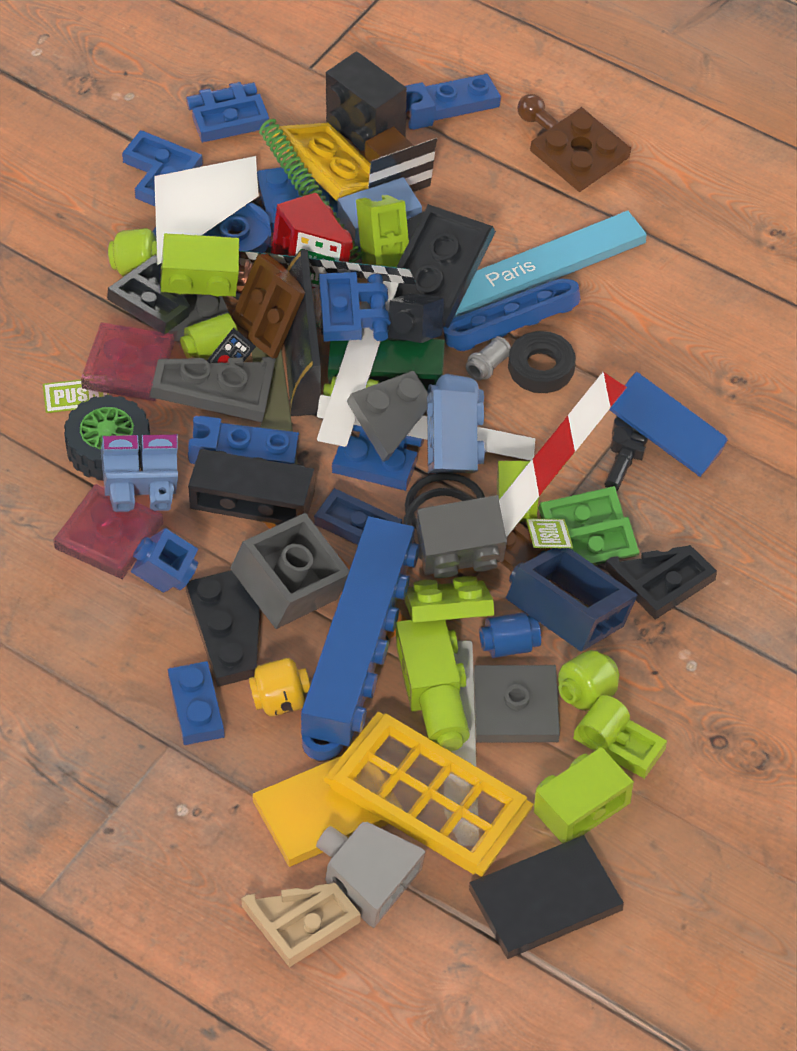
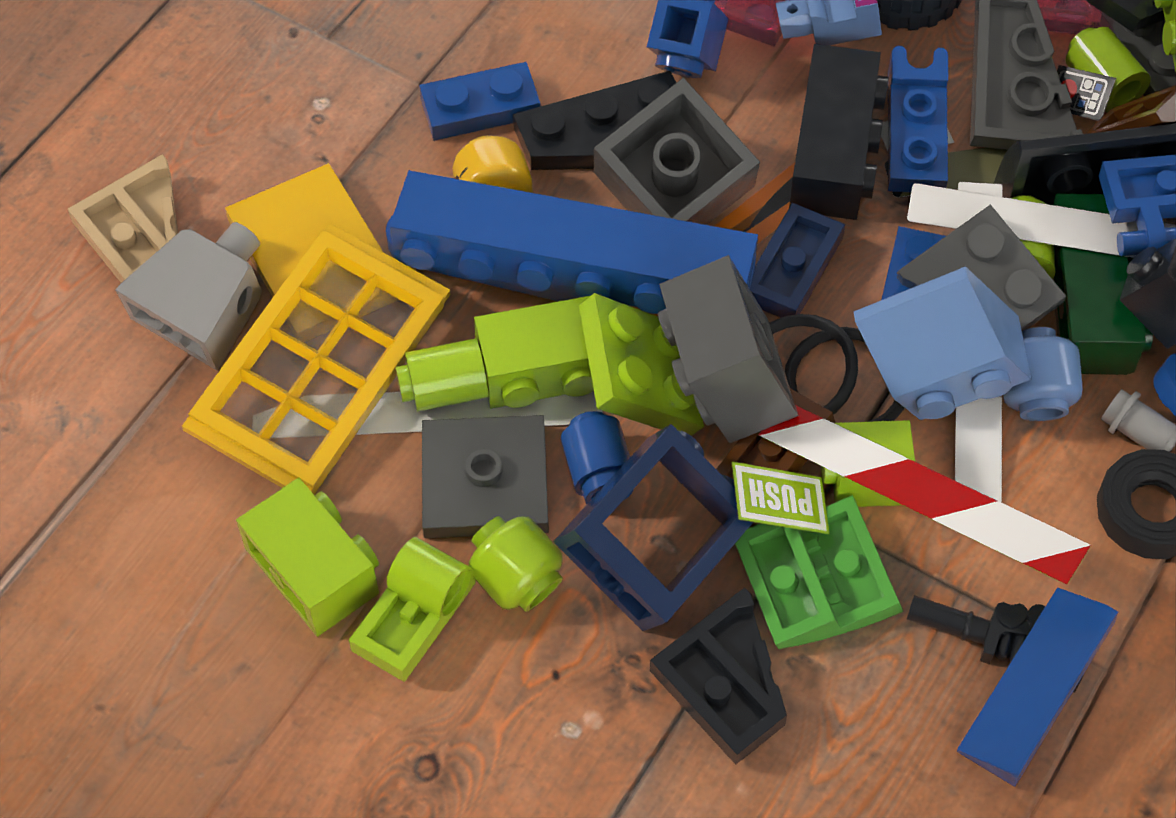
camera: 90 degrees right, 5 degrees up
(546, 896) = (155, 519): black tile -> none

